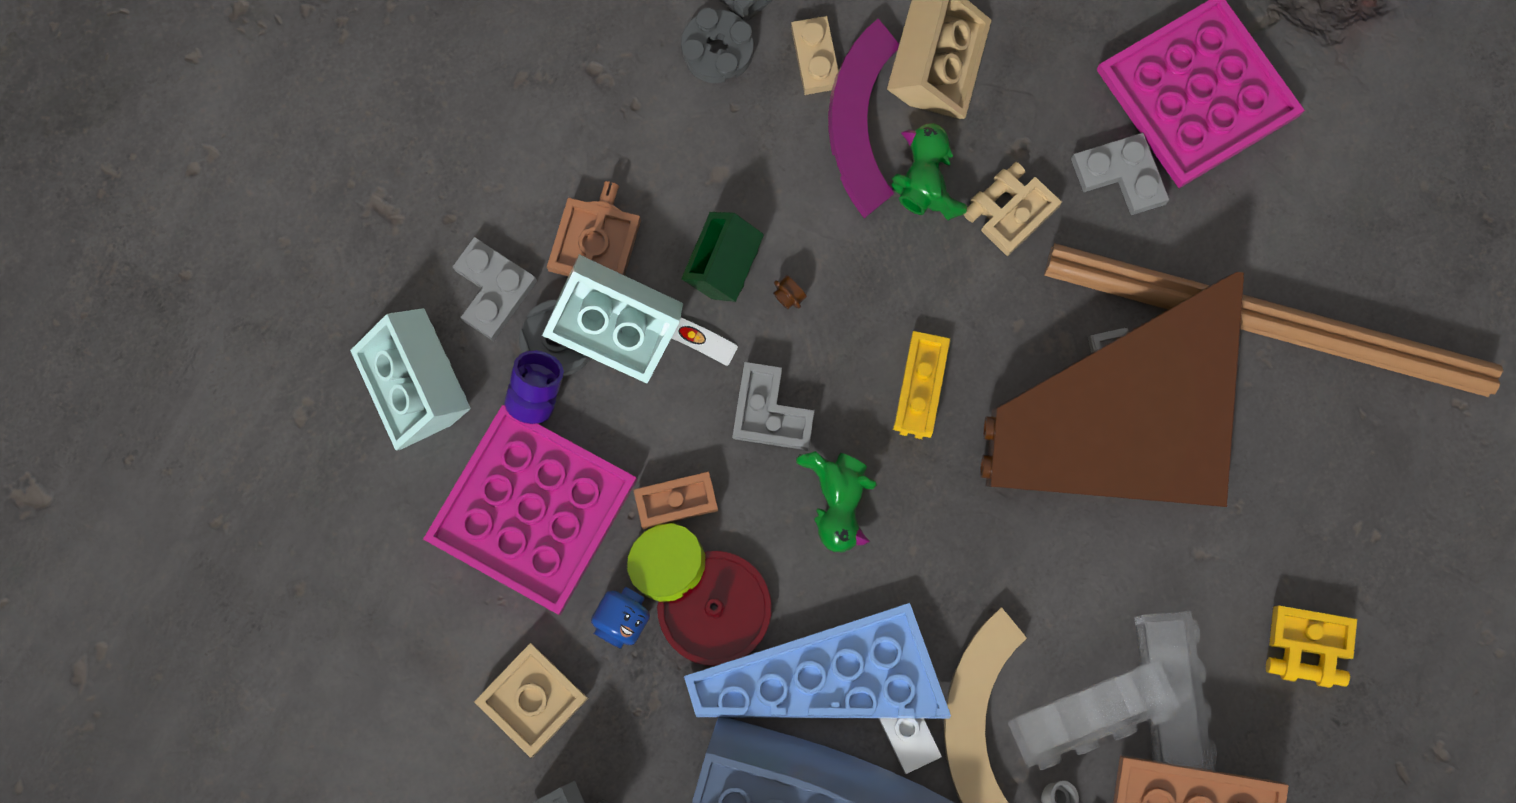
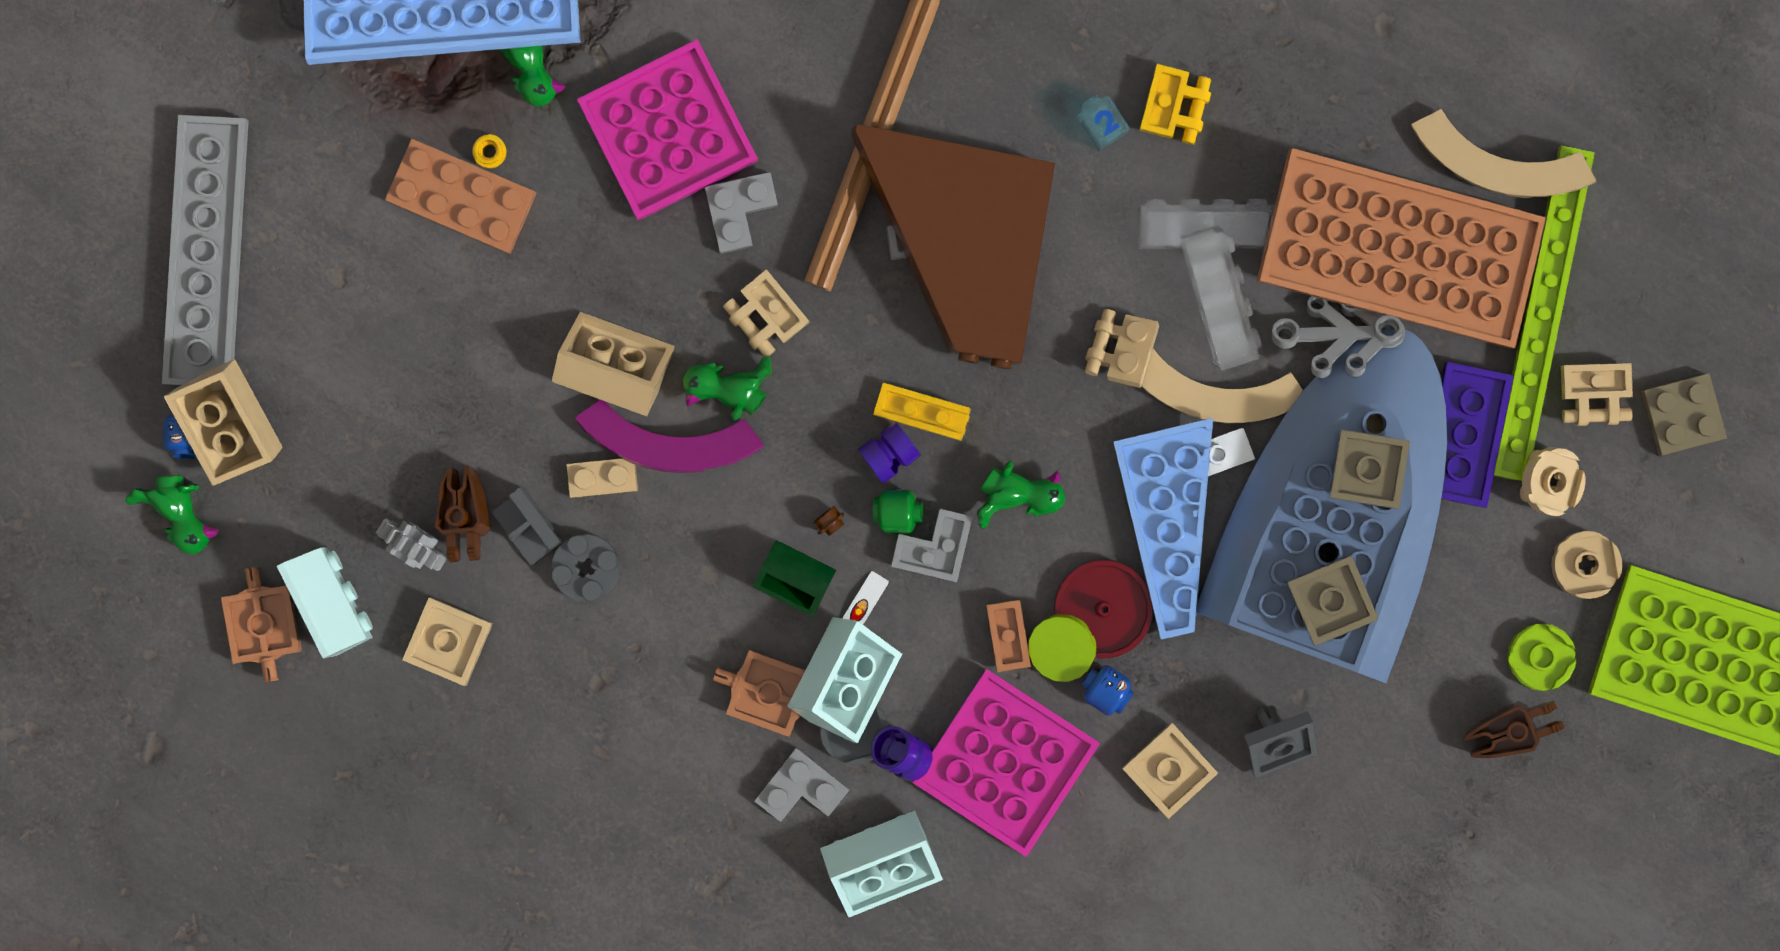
camera: 90 degrees left, 10 degrees up
(807, 364) = (897, 511): none -> green head
(872, 349) = (889, 452): none -> dark purple wheel
(1015, 615) = (1132, 349): none -> tan plate
(1279, 561) = (1102, 121): none -> clear light blue brick

